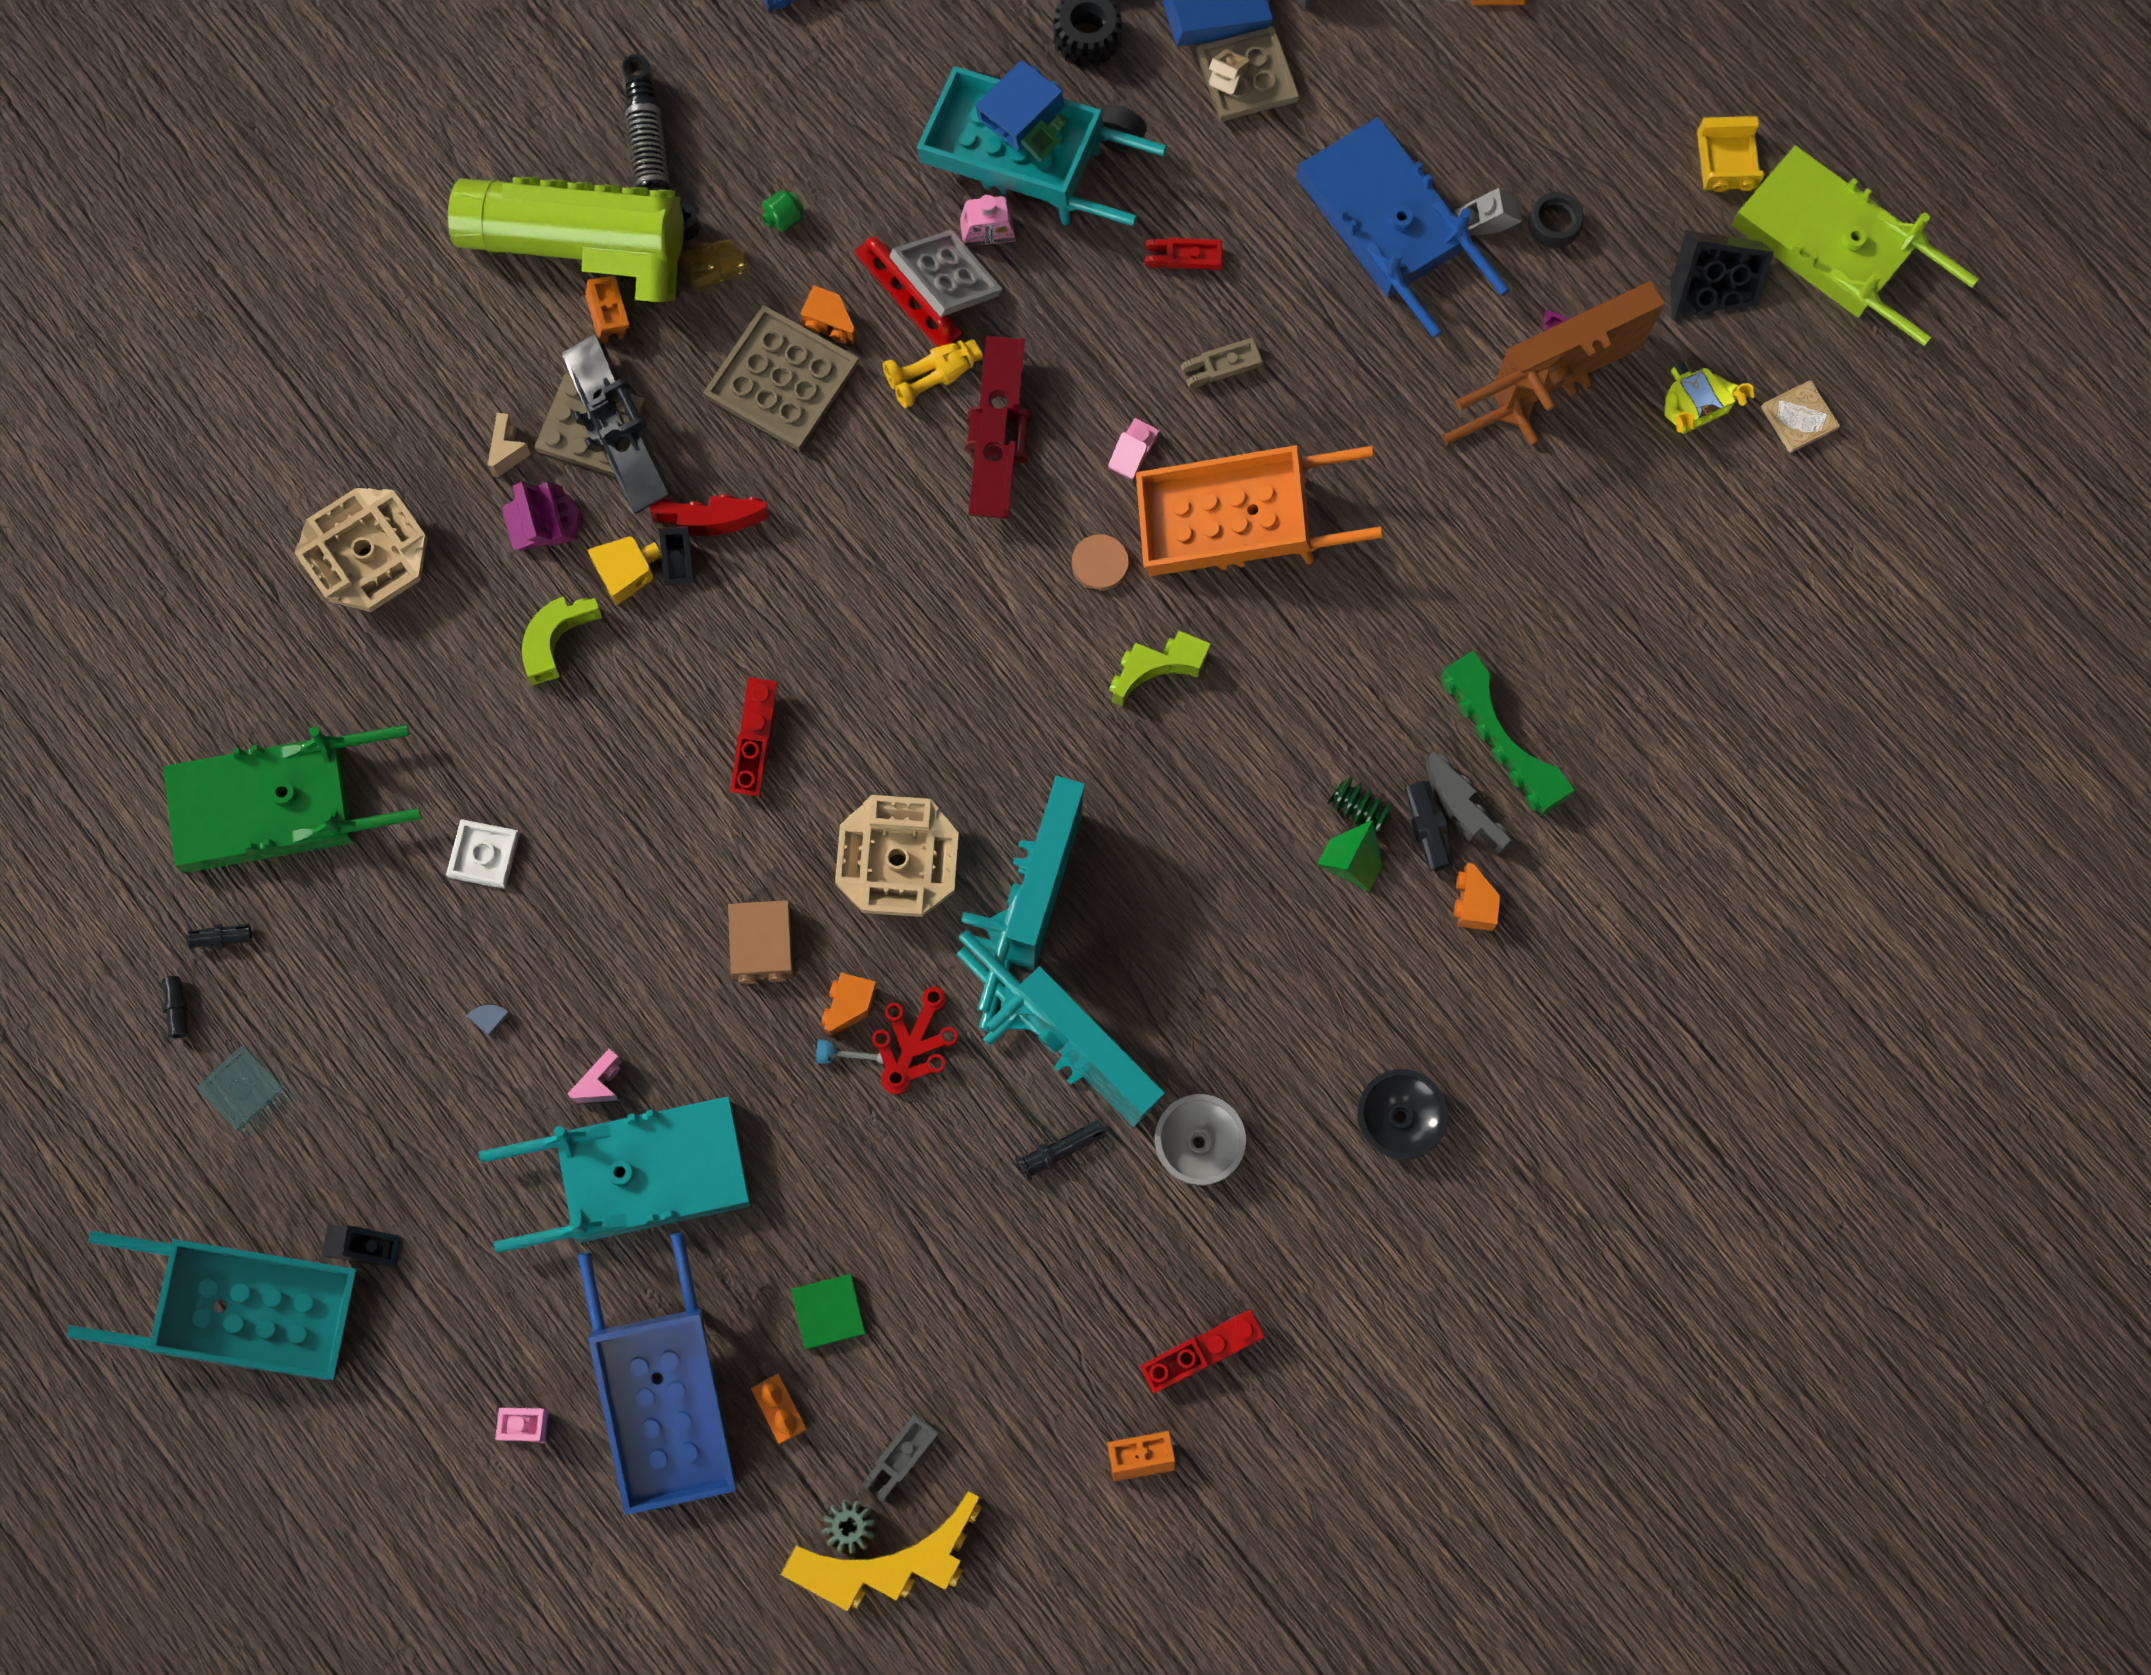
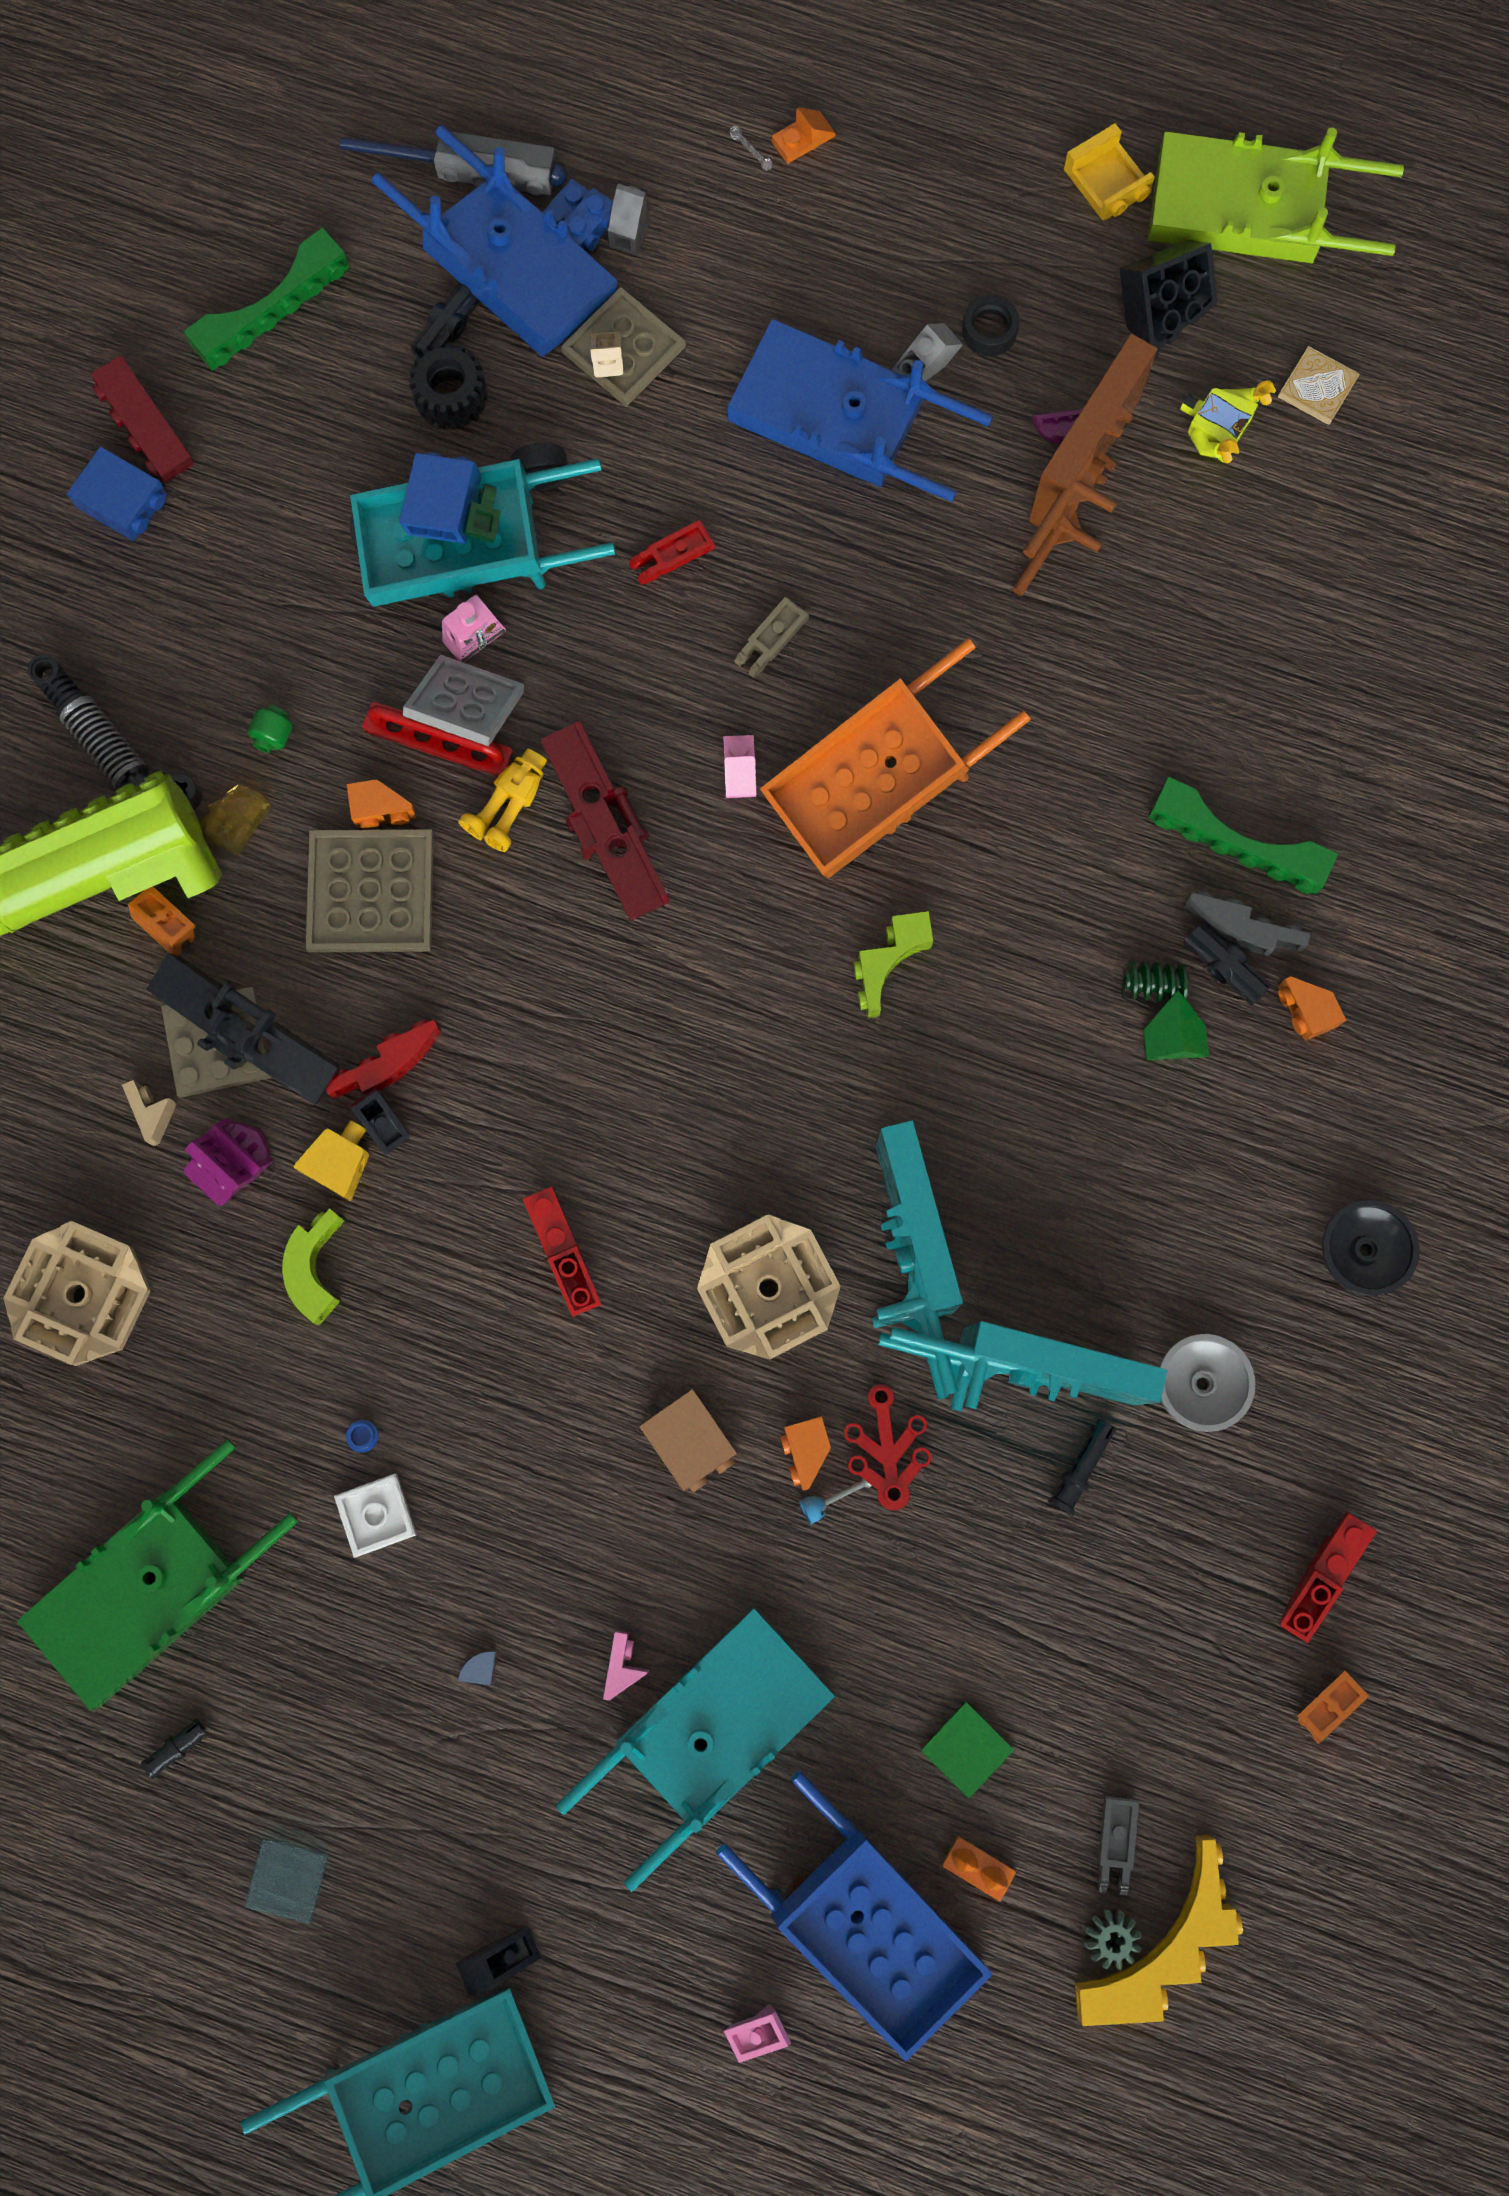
camera: 25 degrees left, 5 degrees up
(174, 1007) = (175, 1843): black pin -> none
(511, 787) = (362, 1436): none -> blue plate
(1100, 562) = (775, 892): nougat tile -> none

